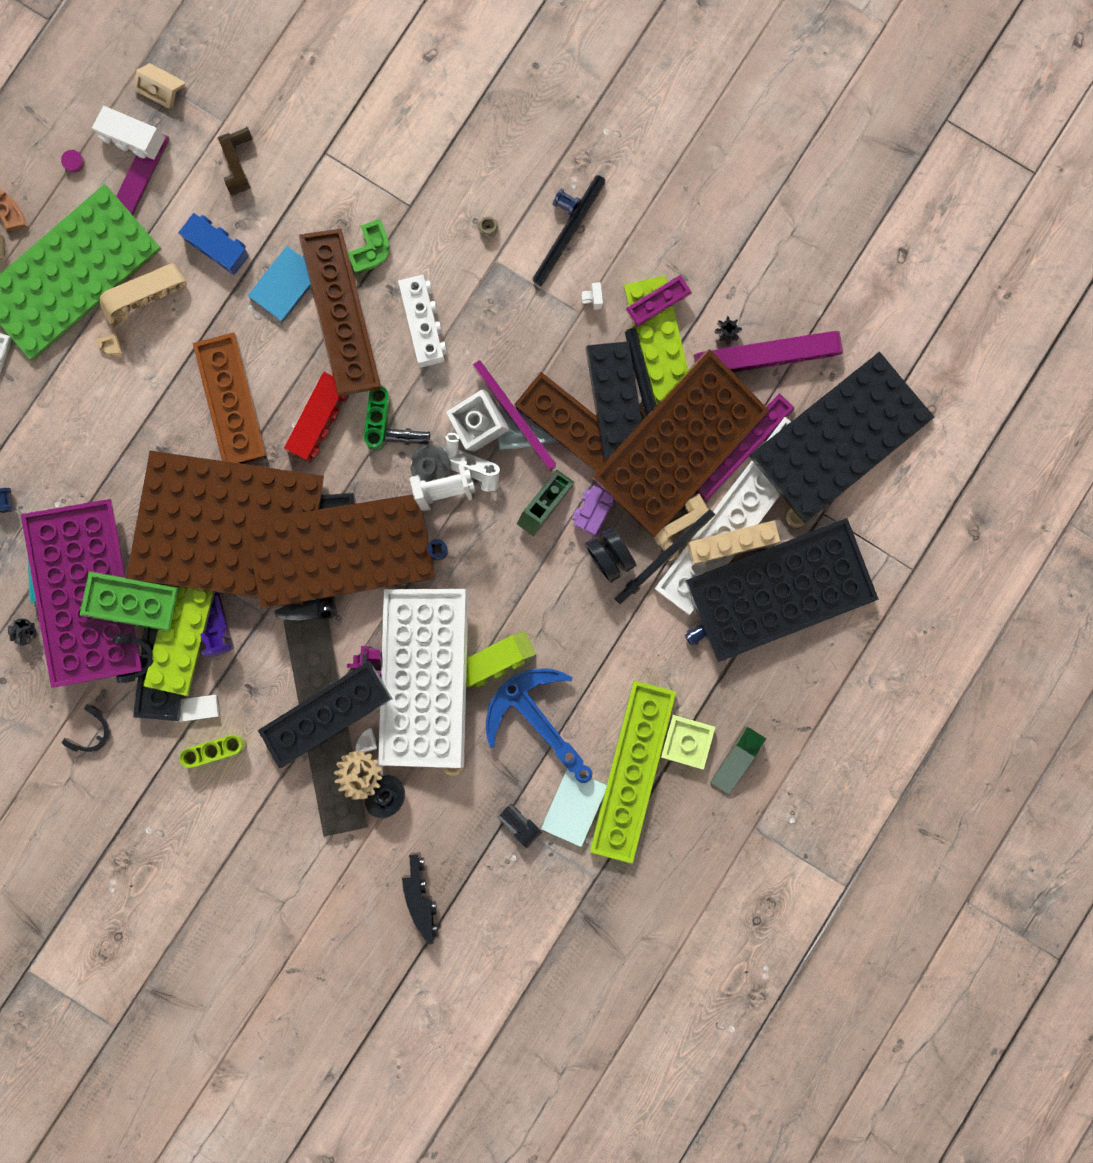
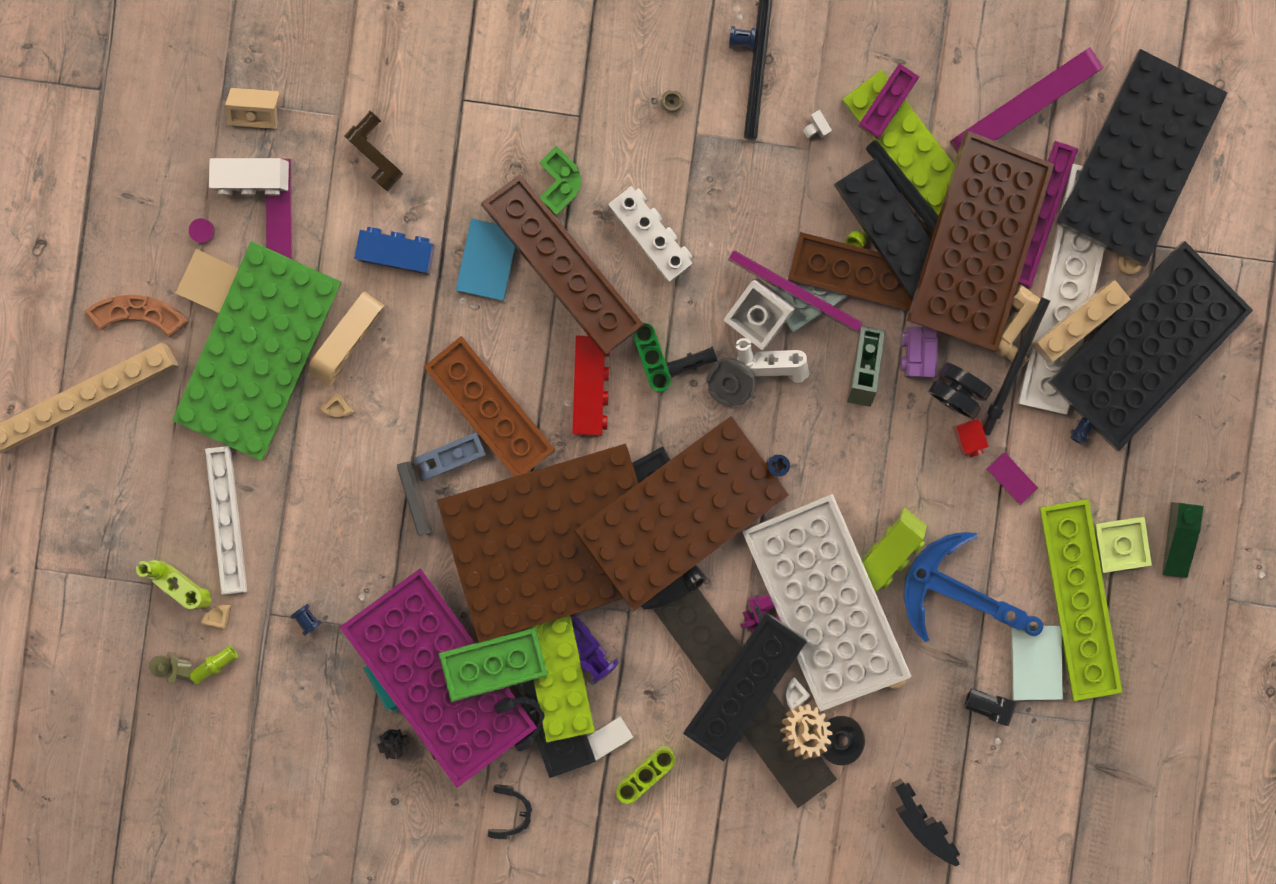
camera: 25 degrees left, 5 degrees up
(56, 200) = (207, 280): none -> tan tile
(133, 441) = (414, 498): none -> dark grey tile
(180, 423) = (450, 456): none -> sand blue plate
(442, 488) = (744, 416): white fence -> none
(584, 398) = (856, 235): none -> lime hinge
(603, 598) = (971, 438): none -> red brick
(622, 647) = (1012, 478): none -> magenta tile
(732, 327) = (973, 92): black gear -> none

